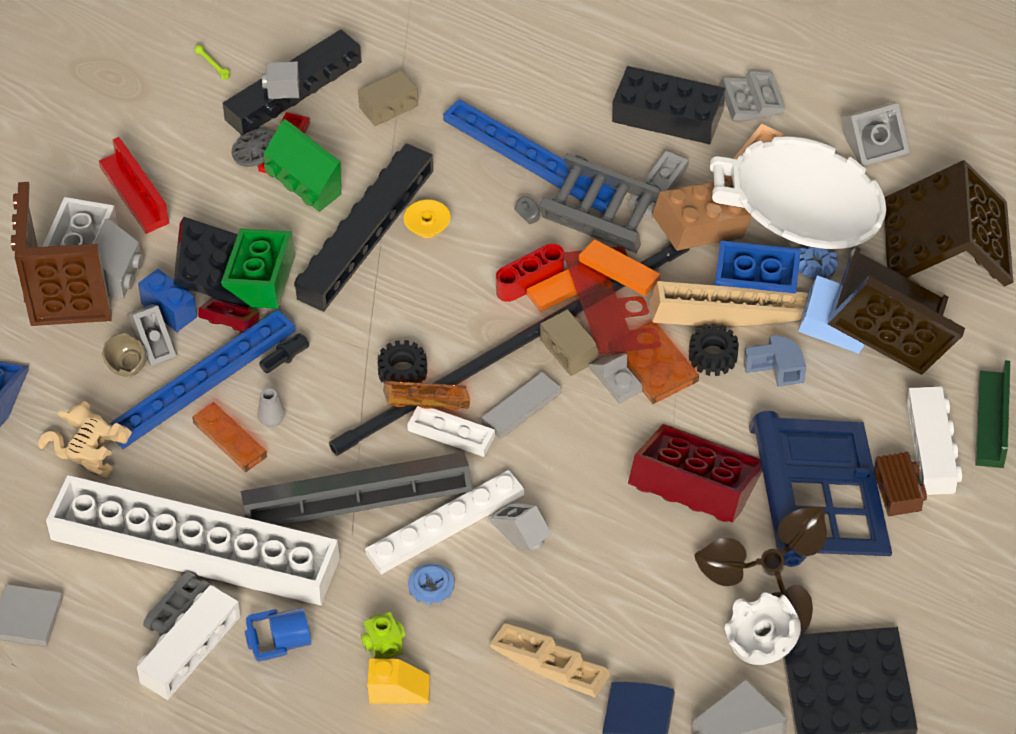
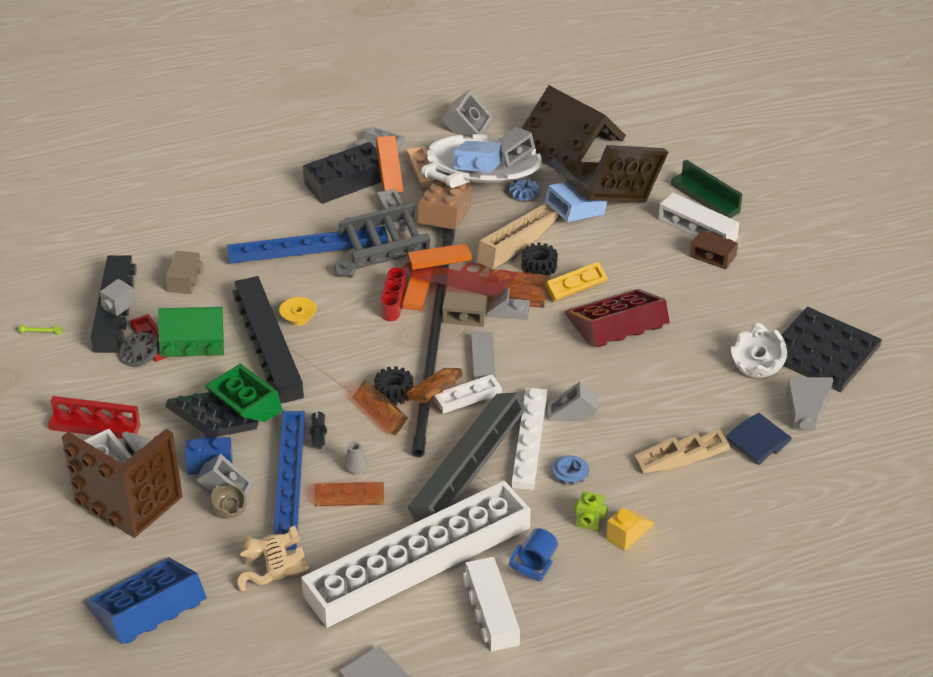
camera: 50 degrees left, 10 degrees down
(174, 603) = (455, 593): dark grey plate -> none
(228, 314) = (263, 433): dark red plate -> none
(359, 377) = (380, 407): none -> clear orange plate
(706, 128) = (389, 163): none -> orange tile
(711, 402) = (576, 281): none -> yellow plate
(758, 267) = (509, 206): blue slope -> none
(780, 355) = (578, 238): sand blue brick -> none
(800, 530) = (712, 294): dark brown plant -> none
(801, 186) = (478, 156): none -> light blue brick
(824, 455) = (660, 264): dark blue door -> none
(856, 204) = (516, 145): none -> light grey slope

